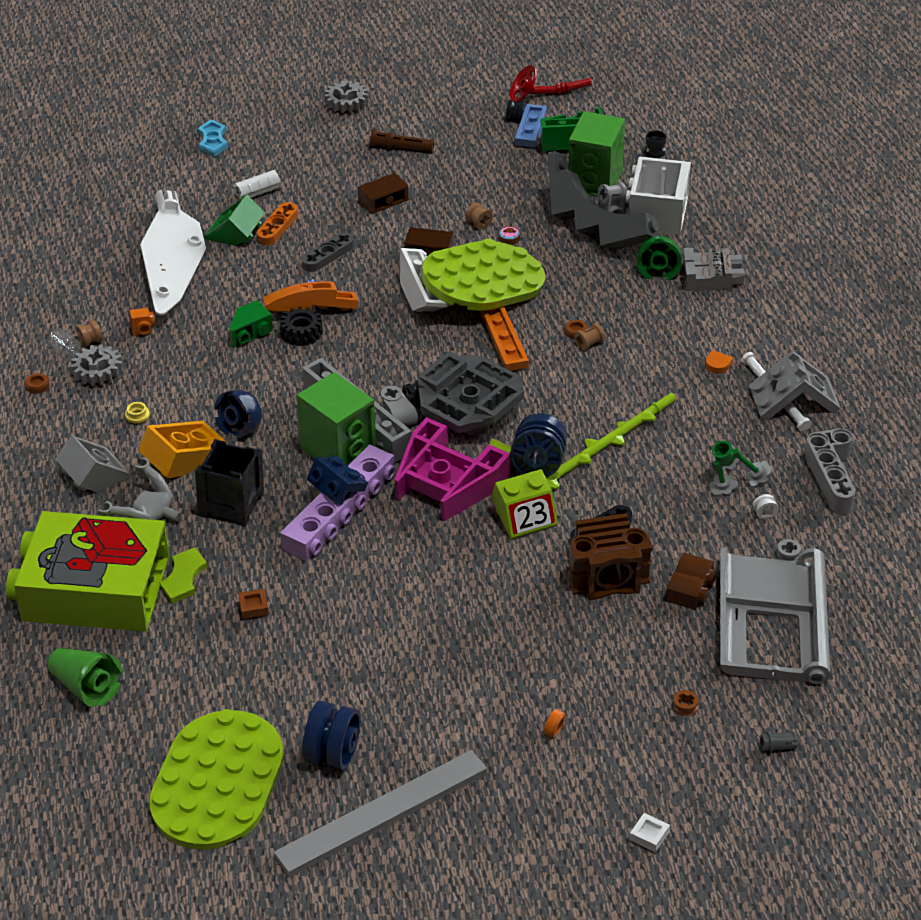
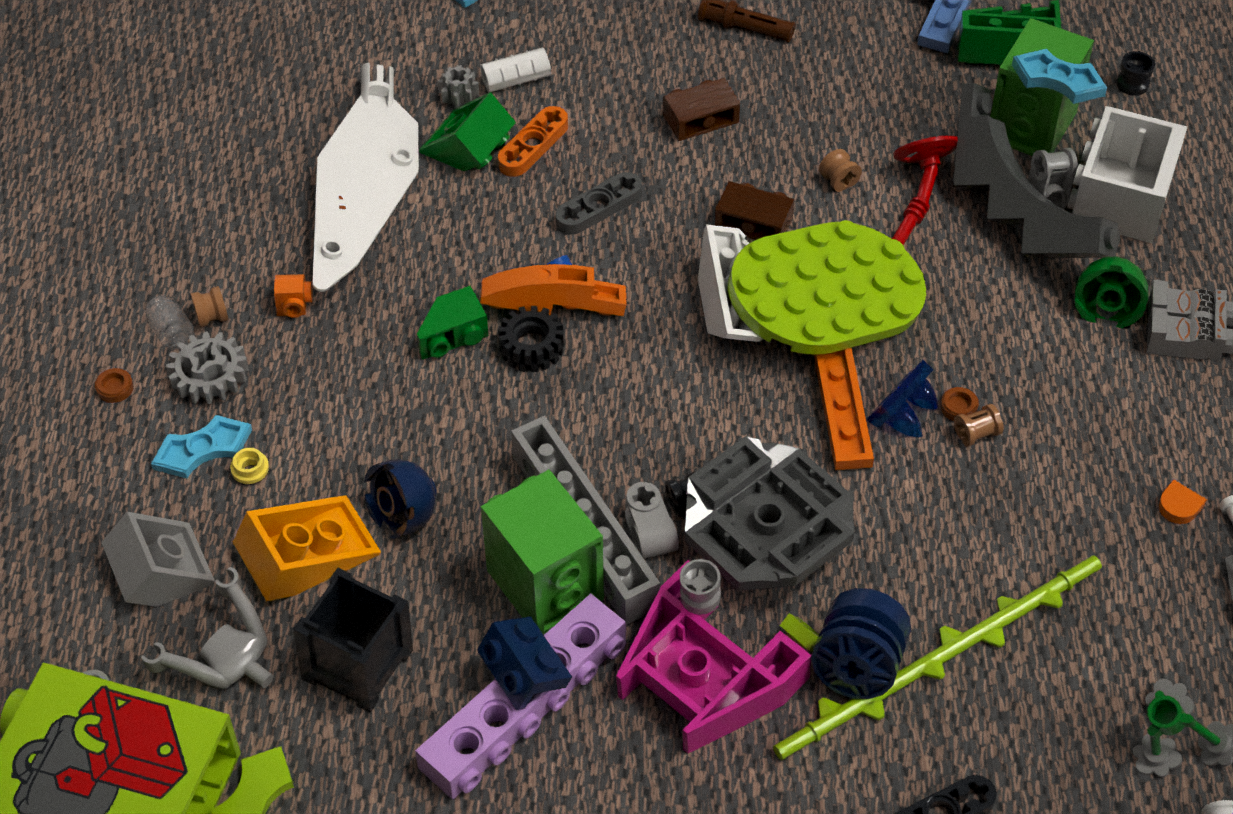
camera: 10 degrees right, 10 degrees up
(94, 412) = (185, 452): none -> medium azure tile
(221, 198) = (458, 86): none -> light grey gear
(437, 425) = (695, 578): none -> light grey wheel
(509, 235) = (882, 210): tile -> none
(525, 504) = (821, 755): lime slope -> none
(533, 202) = (928, 155): none -> red dish
(537, 332) = (895, 409): none -> clear blue tile
(599, 137) = (1073, 80): none -> medium azure tile

